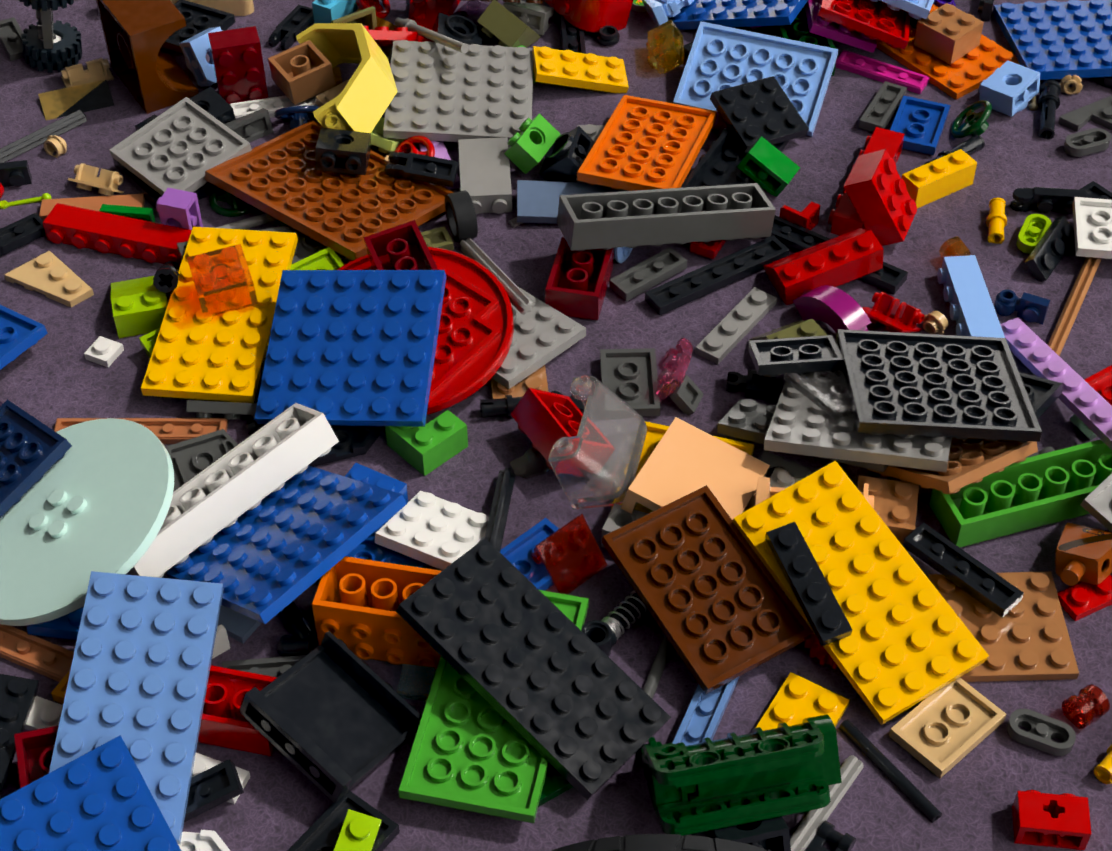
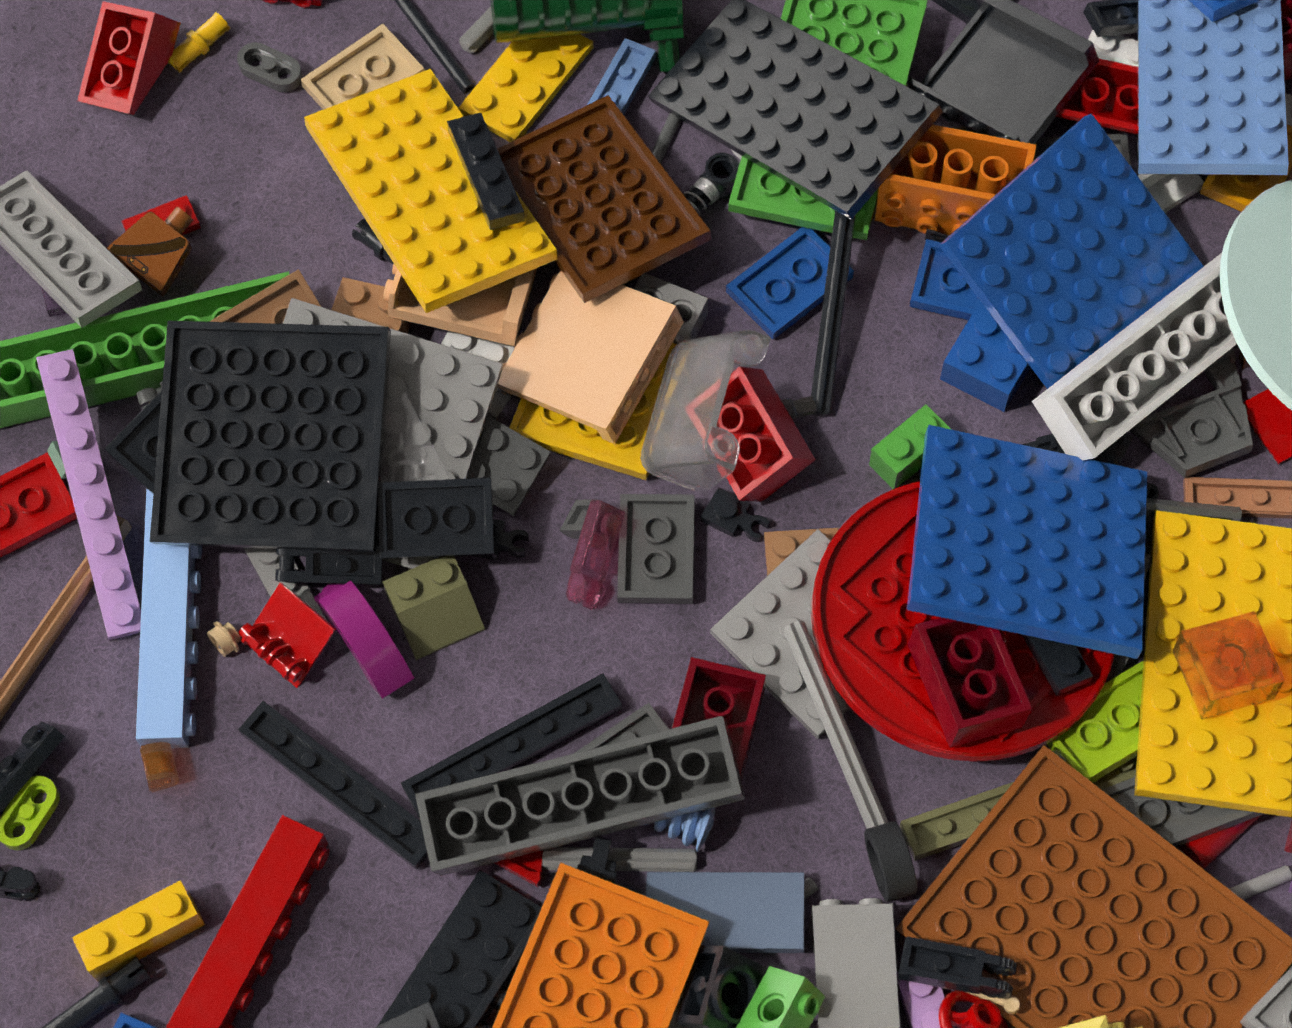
camera: 175 degrees left, 20 degrees up
(342, 151) = (1106, 970): black brick -> none
(433, 530) = (903, 317): white plate -> none
(498, 407) = (816, 514): black pin -> none
(570, 555) = (746, 278): clear red hinge -> none
(735, 325) = (498, 653): light grey plate -> none
(768, 167) = (400, 958): green brick -> none
(807, 218) = (370, 862): red panel -> none
(826, 264) = (357, 737): red slope -> none
(881, 197) = (247, 835): red brick -> none
(963, 570) = (301, 231): black plate -> none
(996, 220) = (74, 844): yellow pin -> none
(1024, 643) = (268, 195): medium nougat plate -> none
(1029, 306) = (86, 653): dark blue plate -> none
(1088, 704) = (216, 88): clear red wheel -> none

